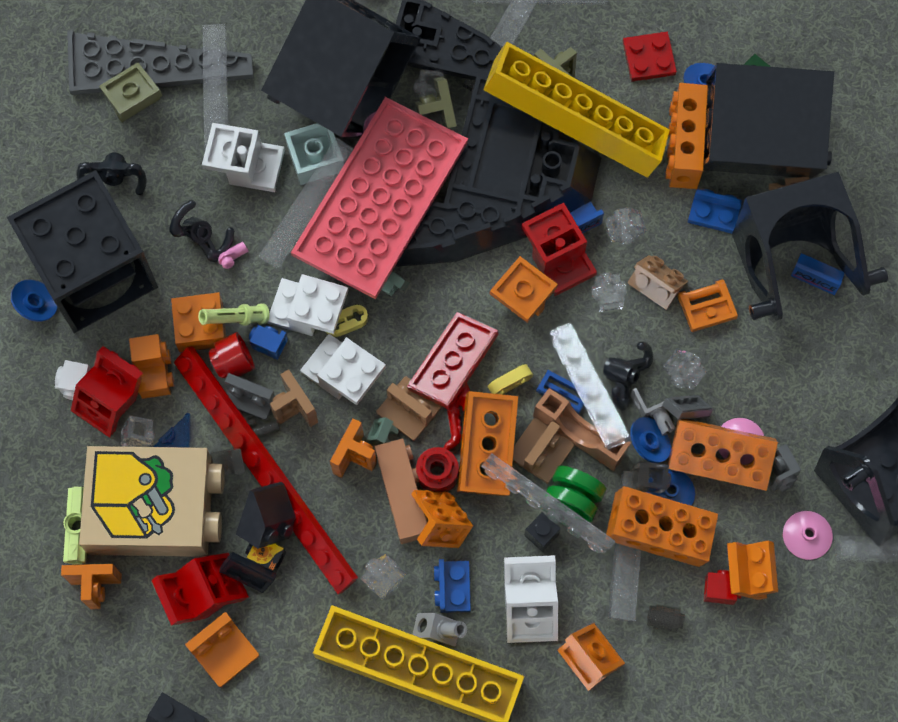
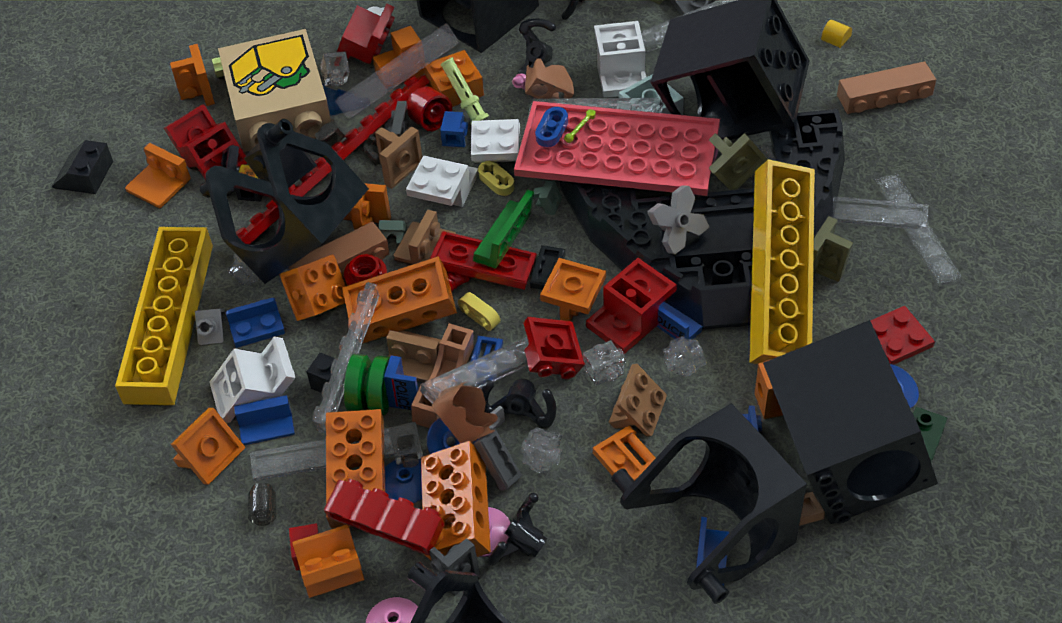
camera: 75 degrees right, 20 degrees down
(179, 371) = (397, 71): none -> clear plate
(250, 235) = (549, 76): none -> nougat piece
(334, 206) = (590, 114): none -> lime hinge
(343, 244) = (551, 126): none -> blue plate
(376, 501) = (302, 220): none -> black piece
(429, 329) = (504, 231): none -> green fence
(478, 307) = (544, 265): none -> black plate
(498, 175) = (678, 219): none -> light grey plant
(573, 599) = (264, 420): none -> blue panel
(584, 327) = (552, 347): none -> red plate
(590, 468) = (399, 387): none -> blue panel
(649, 417) = (463, 412): none -> nougat piece
(736, 510) = (384, 516): none -> red brick
(760, 410) = (521, 534): none -> black piece

